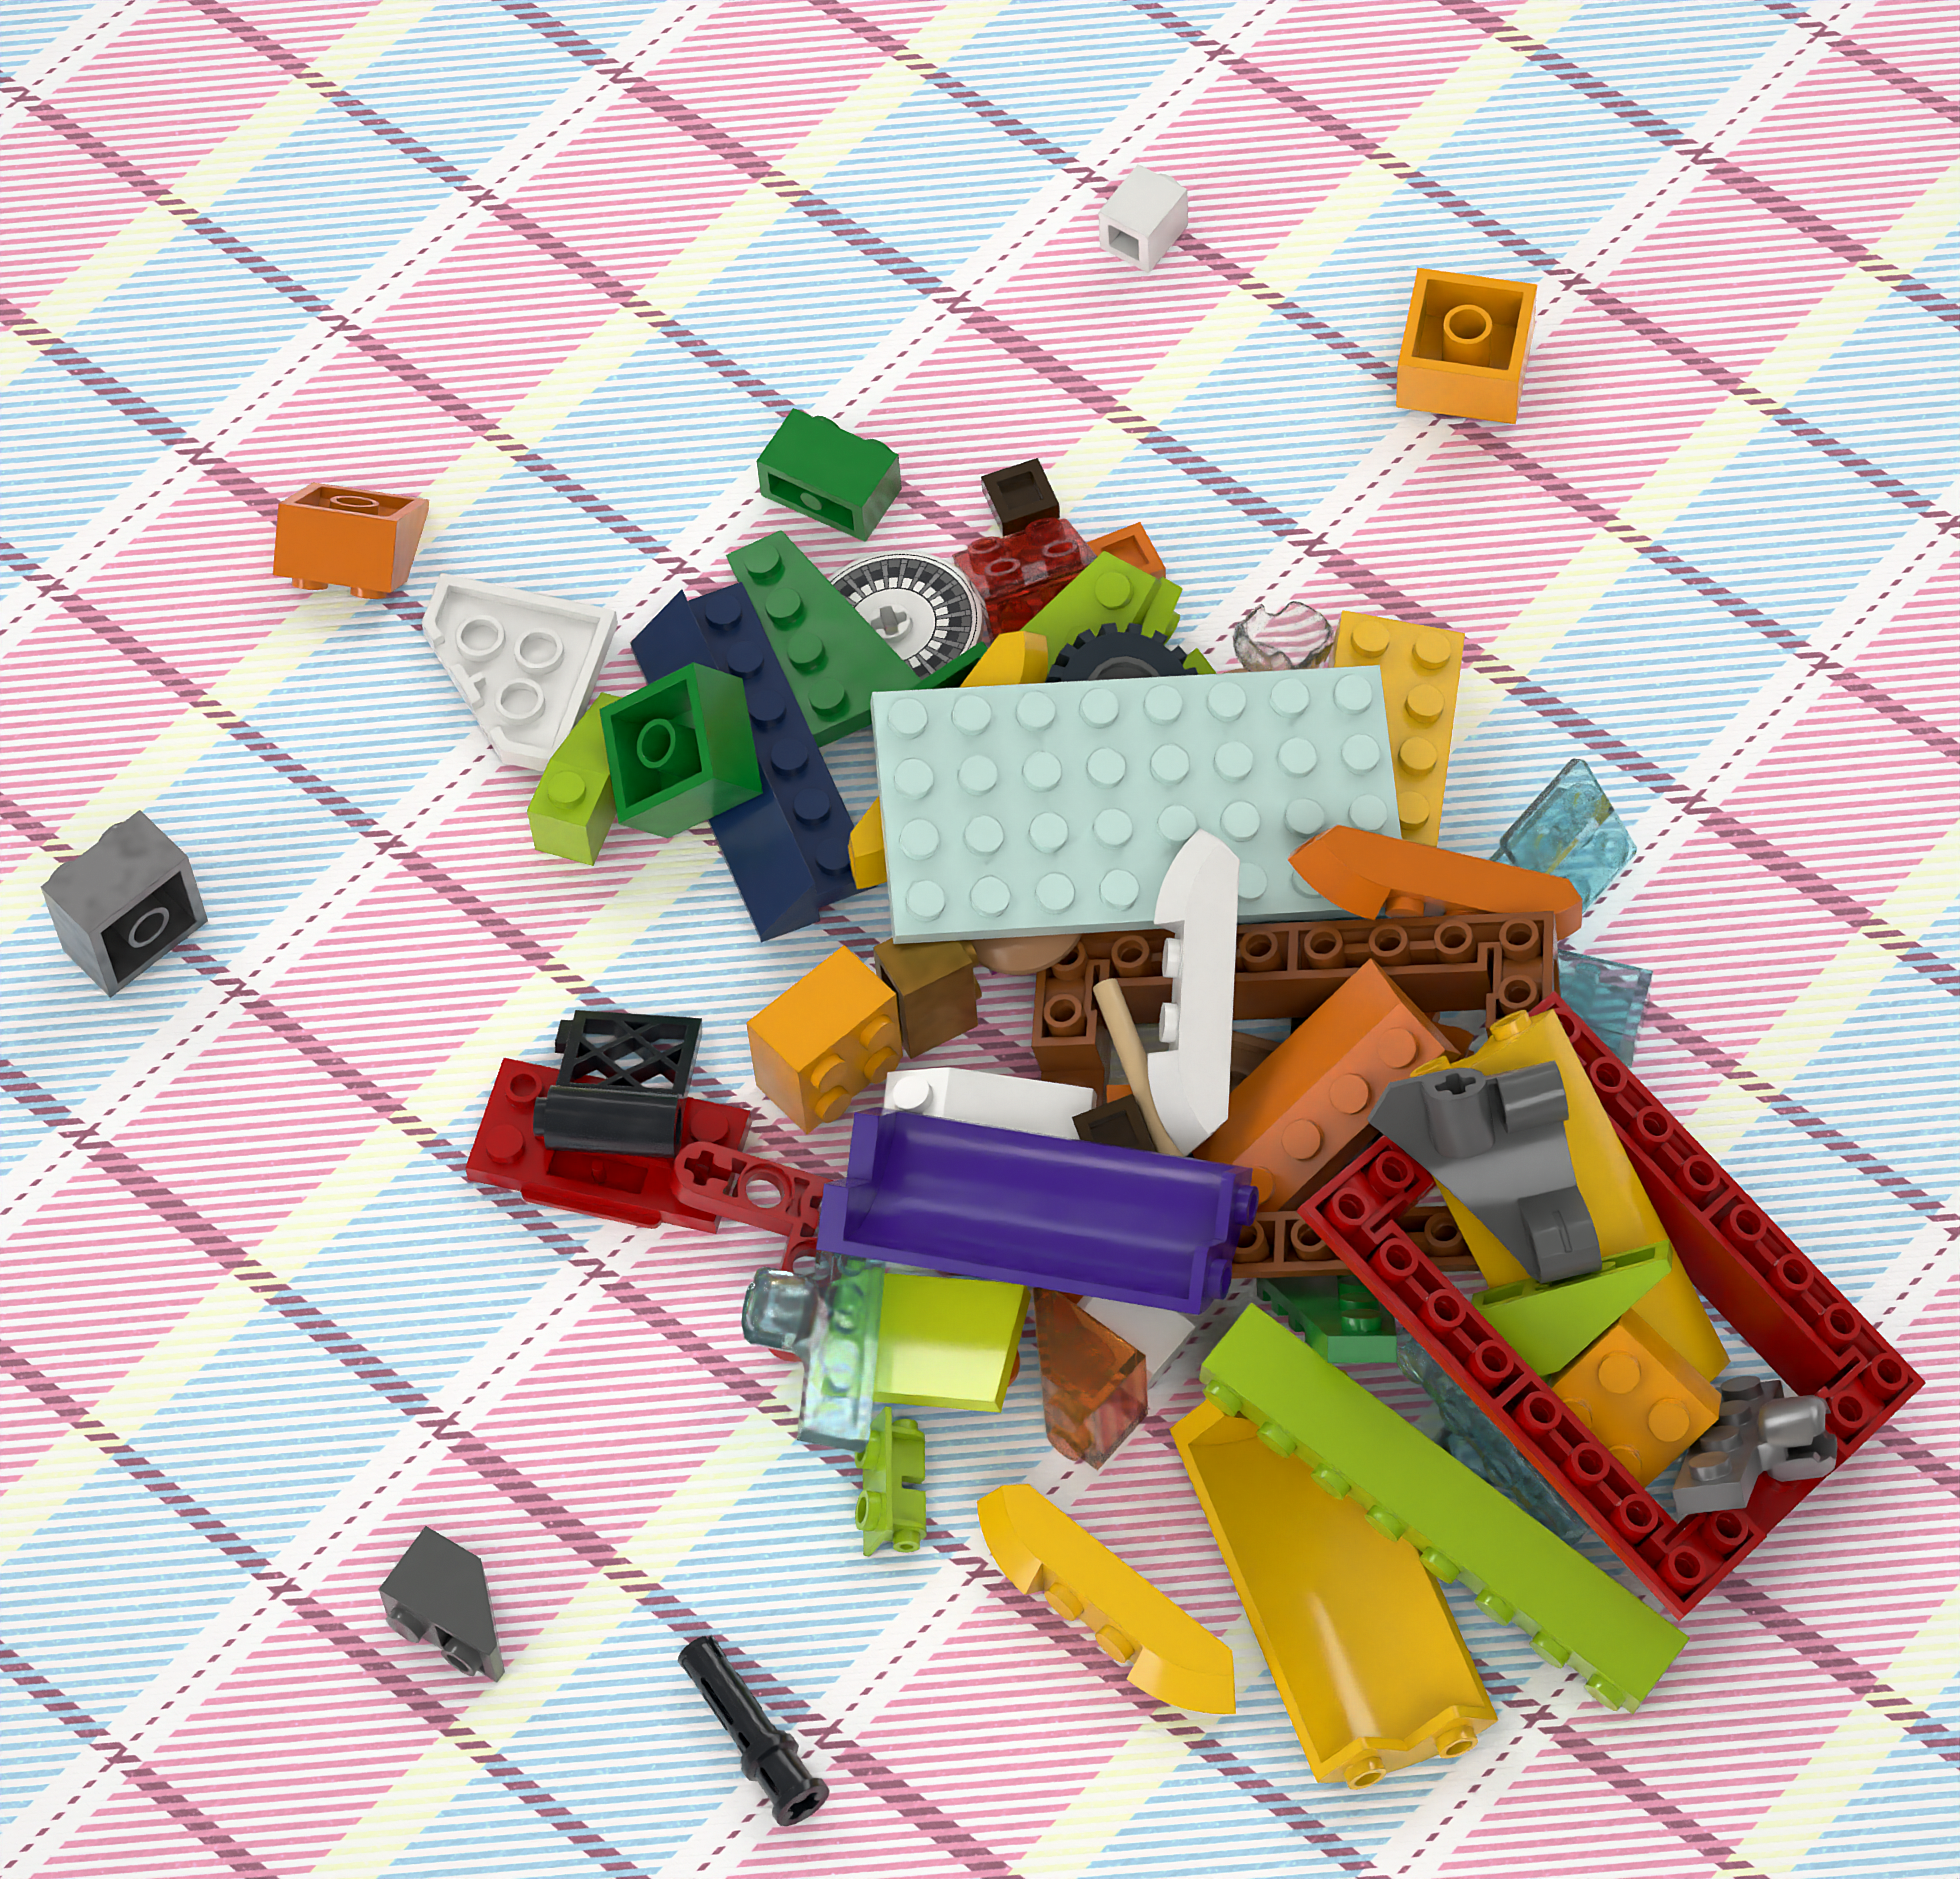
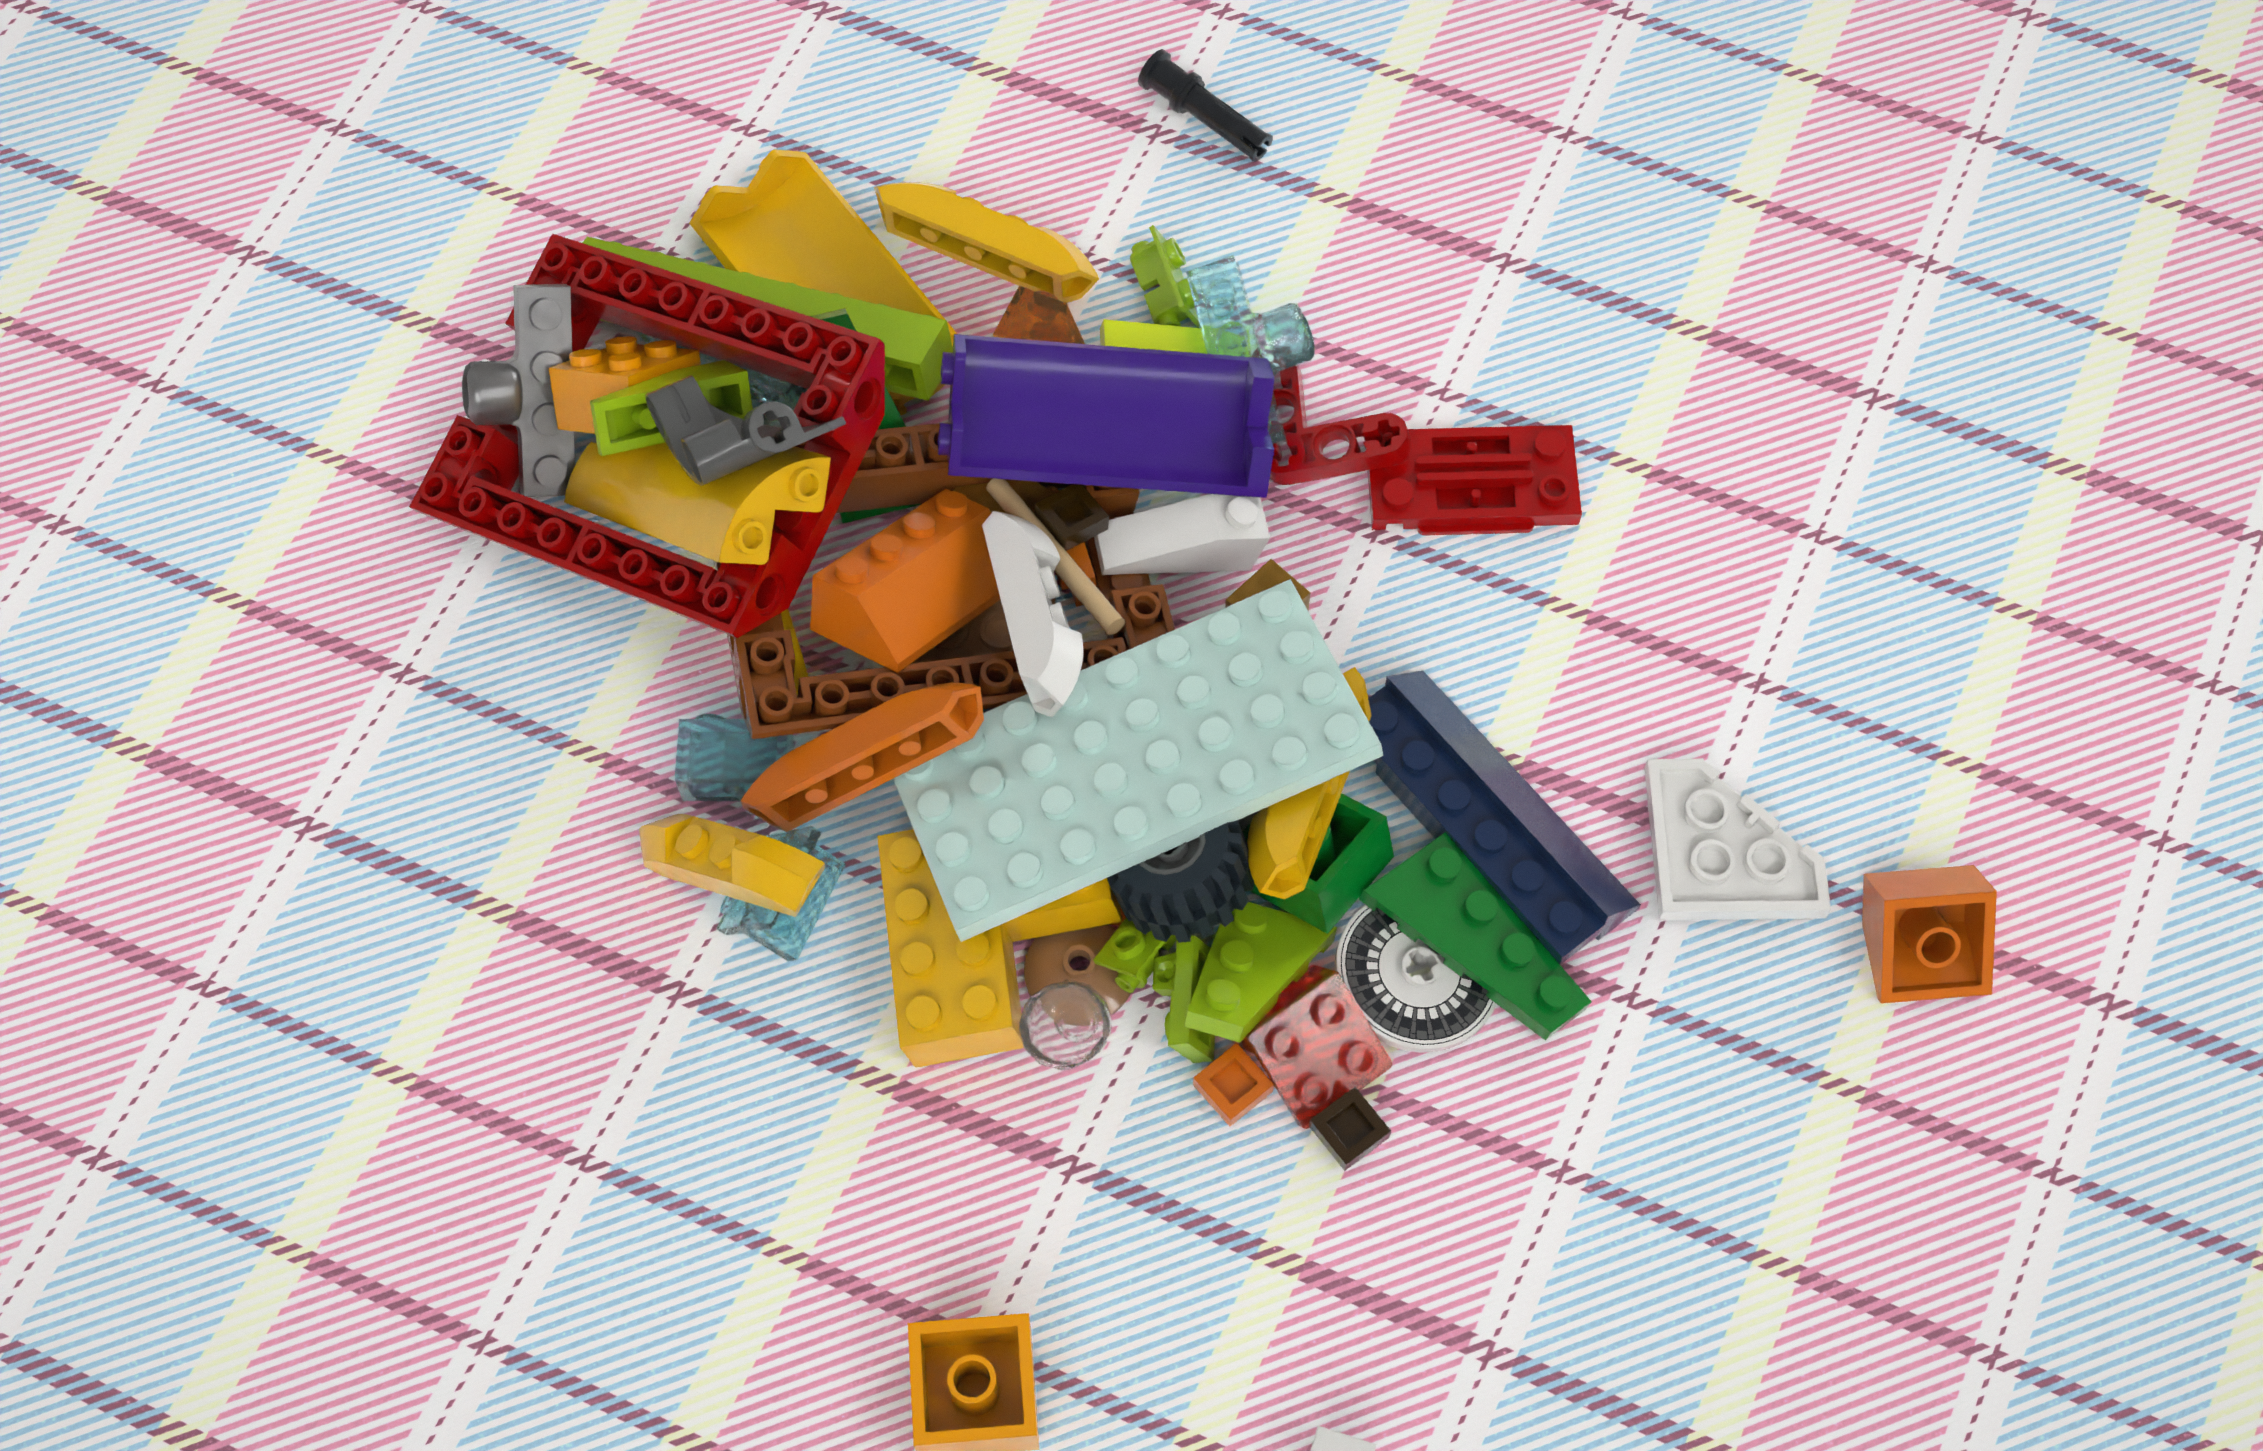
camera: 160 degrees right, 5 degrees up
(124, 902) = (1938, 534): flat silver brick -> none
(445, 1598) = (1442, 128): dark grey slope -> none
(576, 795) = (1617, 765): lime slope -> none
(619, 1112) = (1474, 459): black piece -> none
(680, 750) = (1542, 757): green brick -> none
(825, 1040) = (1334, 550): light orange brick -> none
(829, 474) = (1531, 1104): green brick -> none
(1609, 839) = (730, 862): none -> yellow brick

